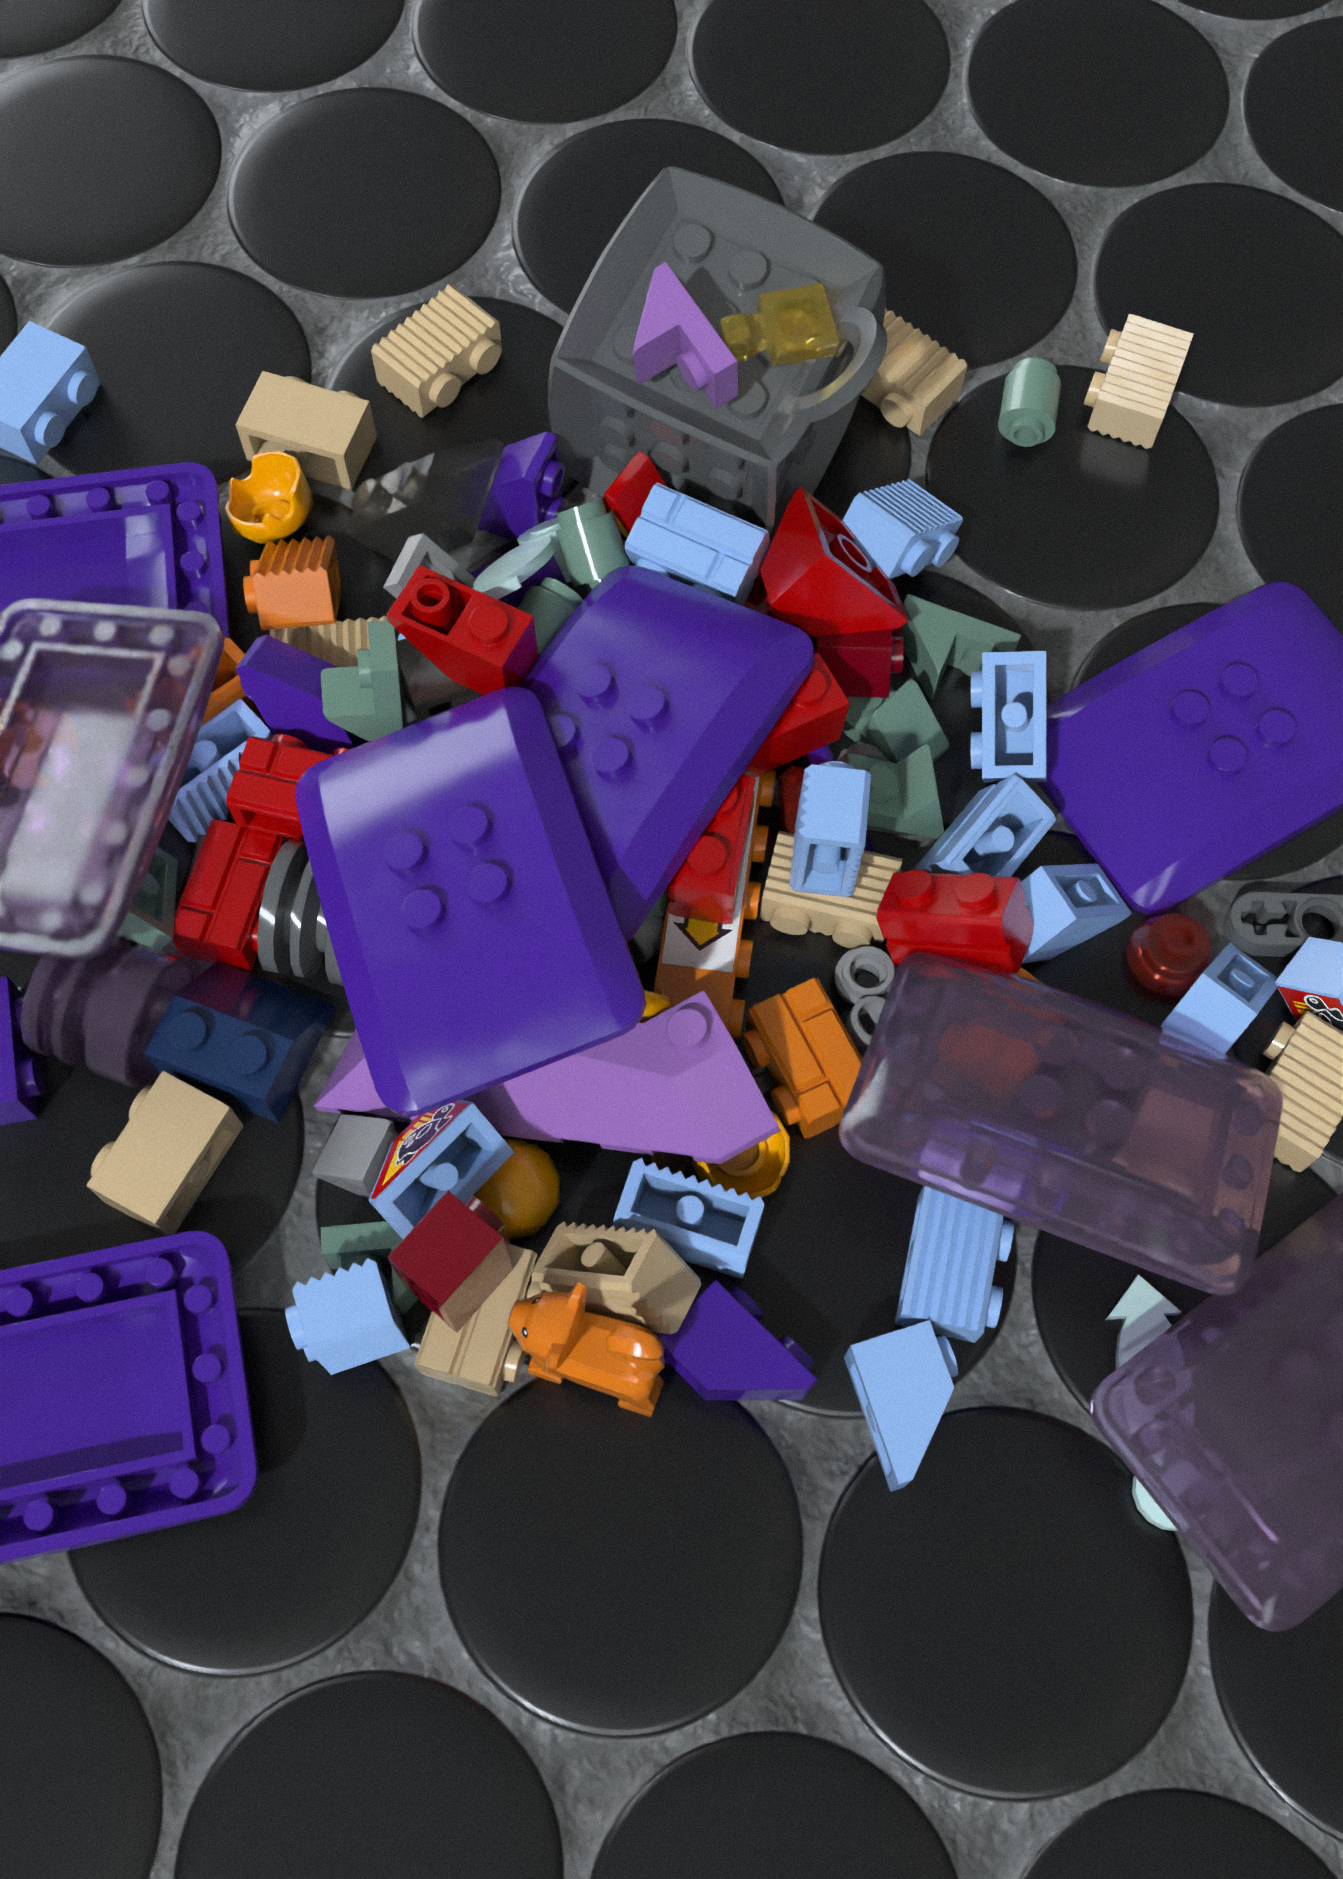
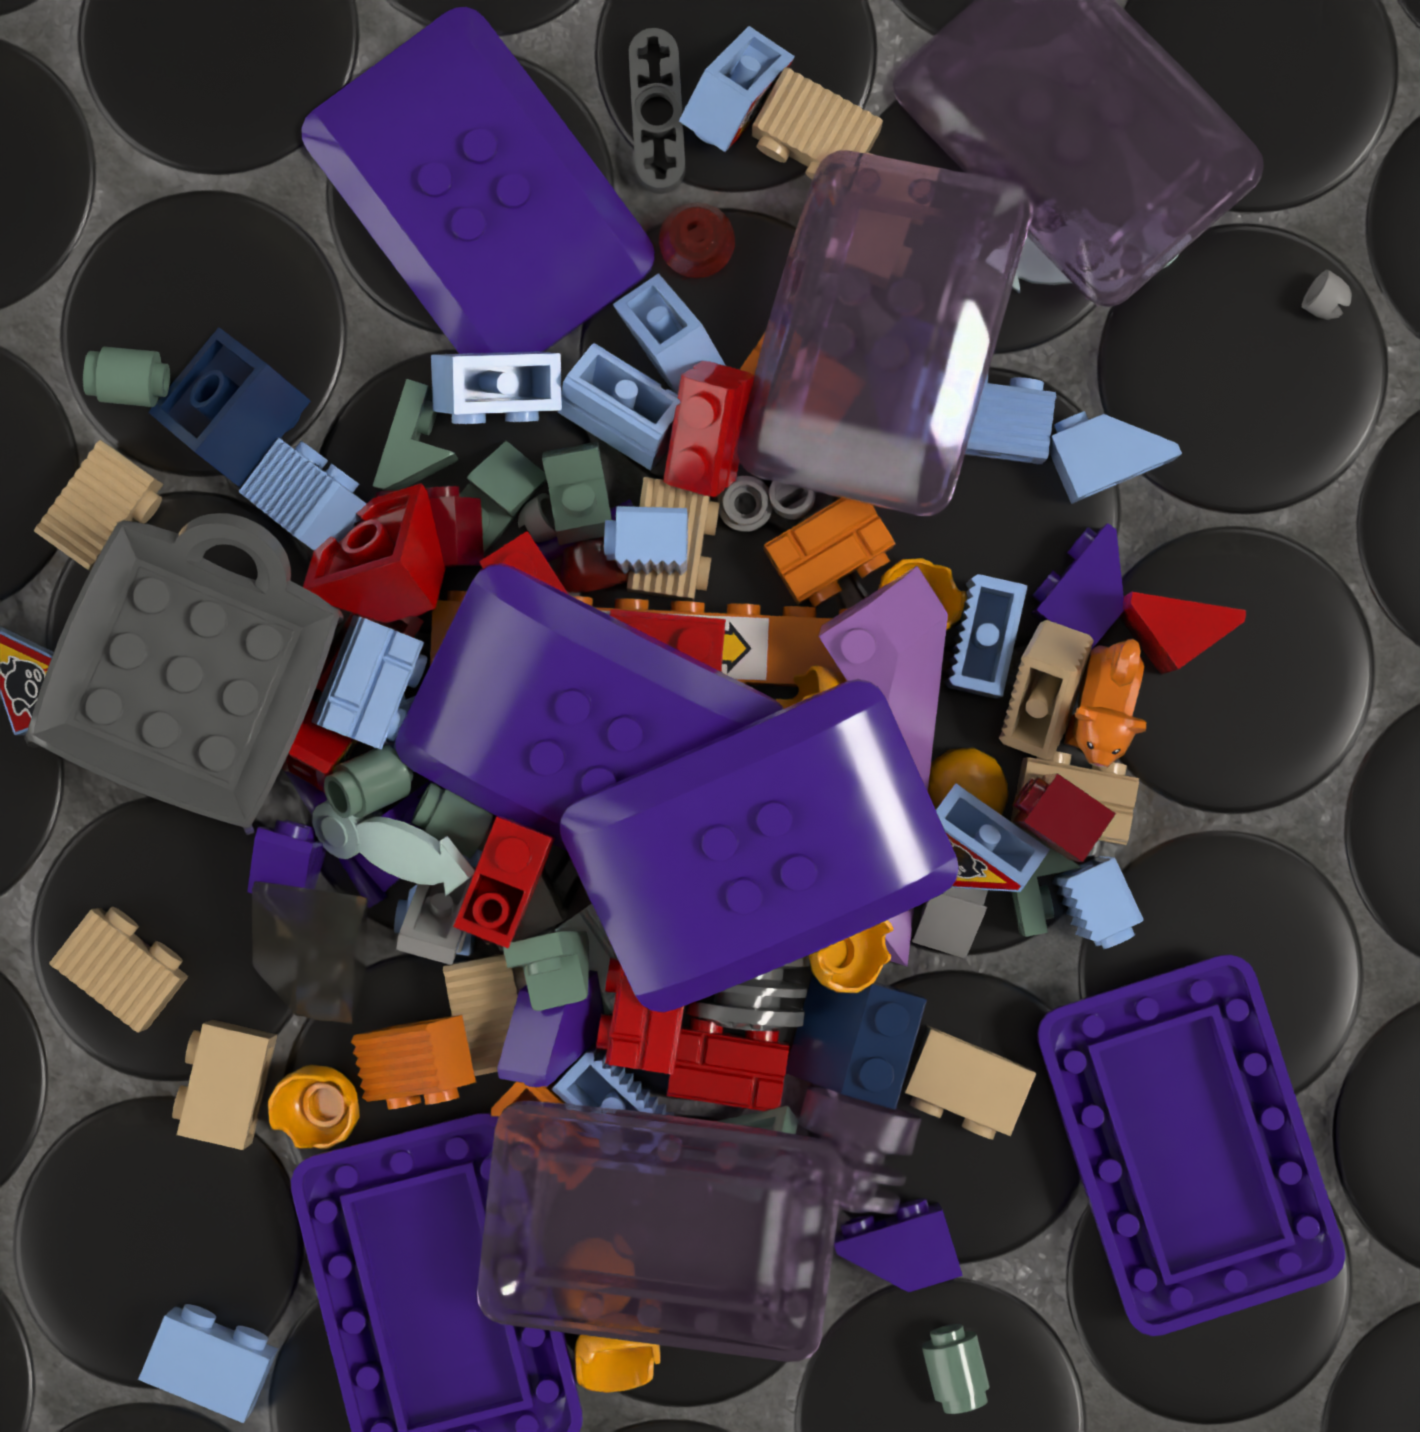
camera: 90 degrees left, 20 degrees up
(322, 1018) = (854, 961): none -> light orange hair
(672, 1450) = (1176, 629): none -> red slope
(679, 333) = (224, 711): medium lavender slope -> none
(788, 323) = (211, 604): clear yellow plate -> none
(994, 488) = (229, 407): none -> dark blue slope
(1097, 1720) = (1325, 295): none -> light grey hinge
(1139, 380) = (87, 269): tan brick -> none
(1223, 1000) = (746, 195): light blue slope -> none

